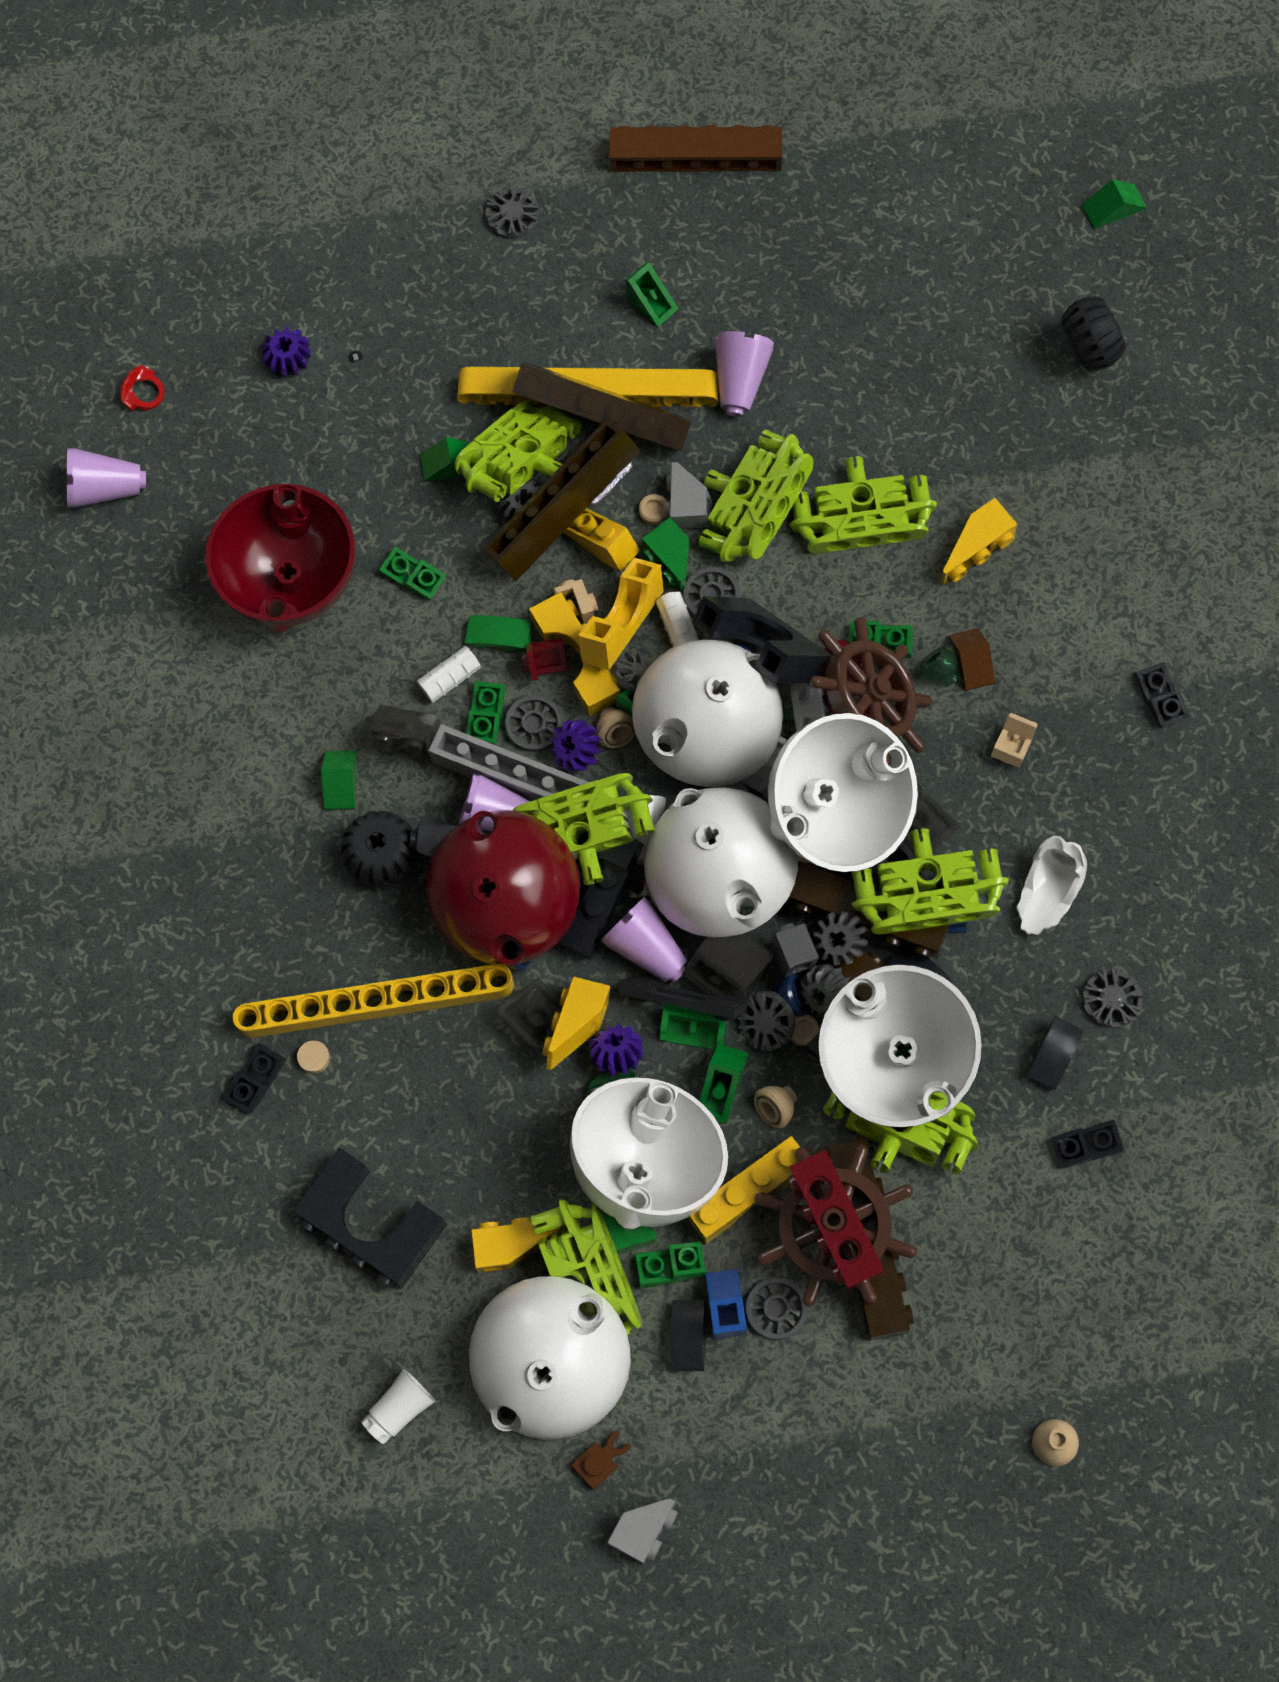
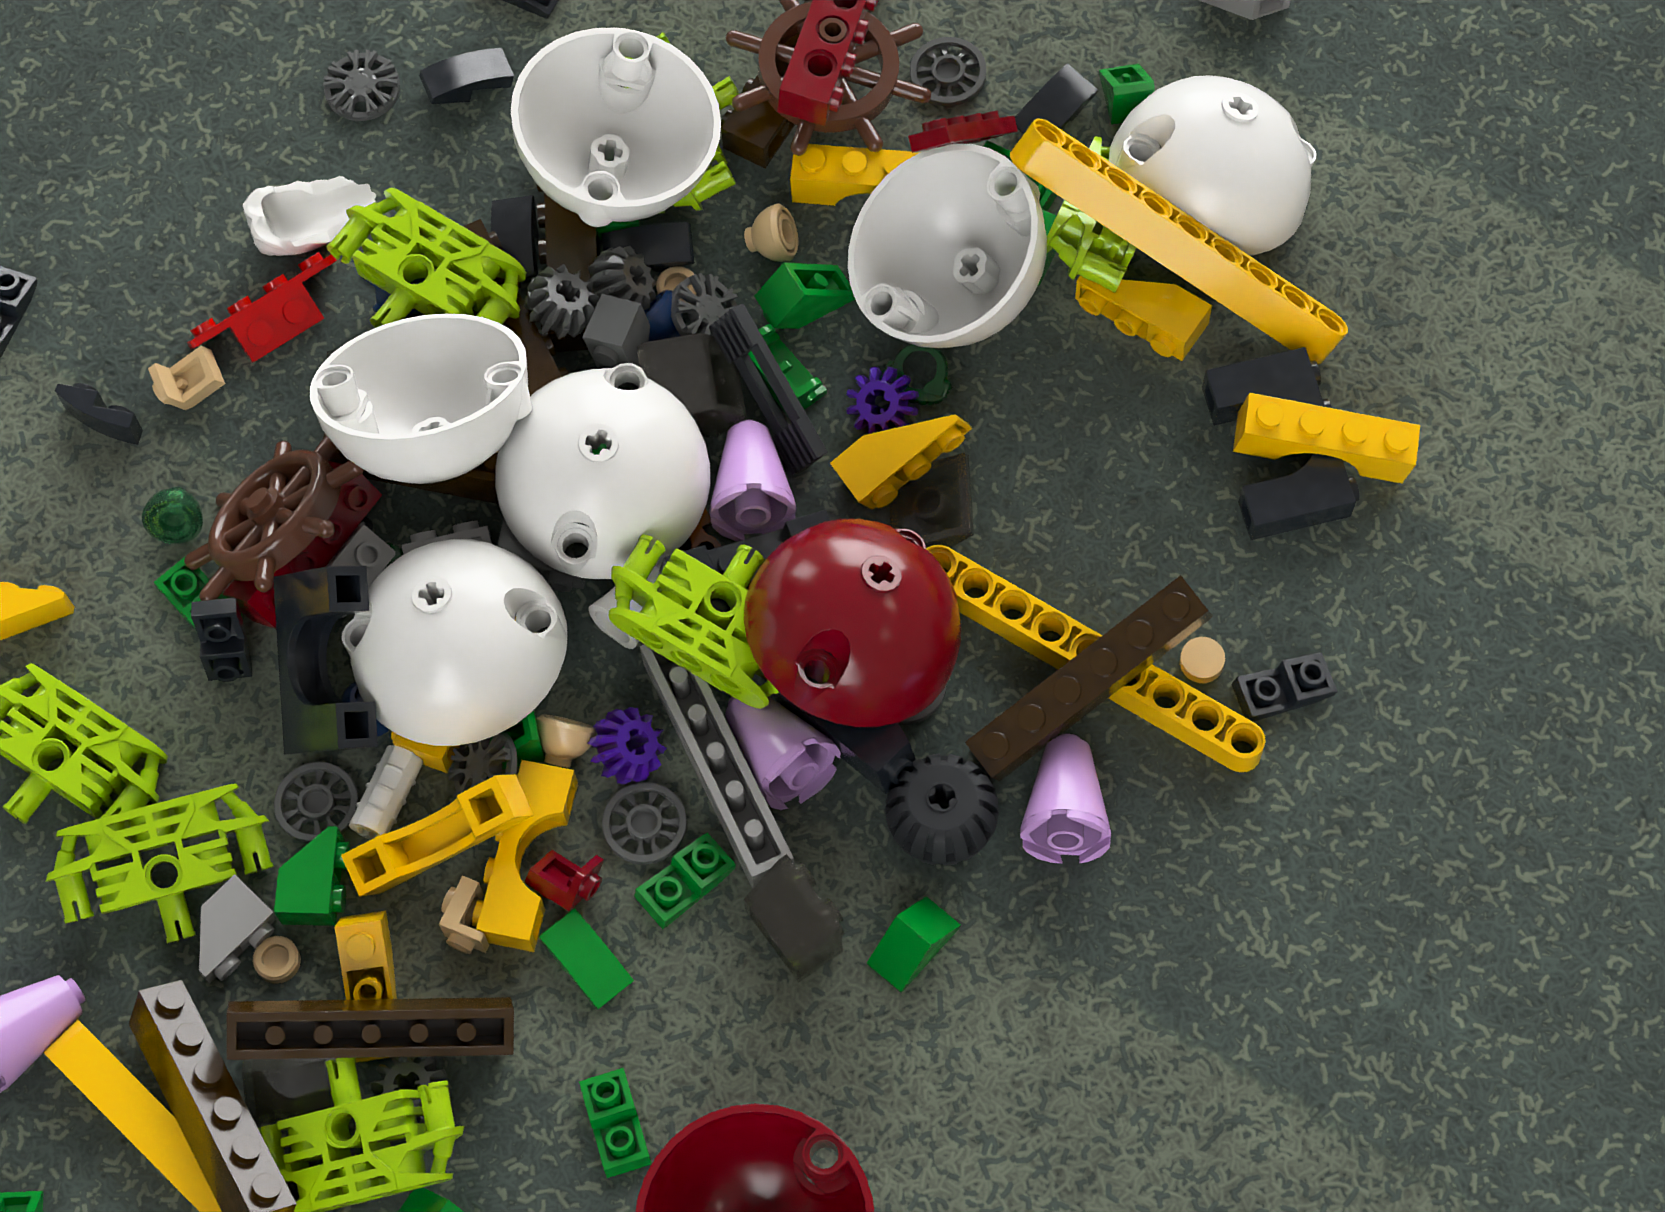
camera: 140 degrees left, 5 degrees down
(318, 909) = (1066, 805): none -> lavender cone
(318, 1249) = (1285, 427): none -> yellow arch
(352, 972) = (1089, 679): none -> dark brown brick
(397, 1407) = (1396, 253): white plant -> none
(448, 674) = (685, 956): white axle -> none
(526, 1261) = (1177, 240): none -> yellow beam
(598, 1463) = (1239, 66): reddish brown plate -> none
(656, 1387) = (1125, 89): none -> green slope
(709, 1233) = (962, 130): none -> dark red wing
(726, 1304) = (1000, 85): blue slope -> none
(837, 619) = (222, 639): none -> black slope
(973, 658) = (124, 499): reddish brown slope -> none
(1011, 817) = (272, 318): none -> red bracket
(1047, 680) = (89, 408): none -> black slope

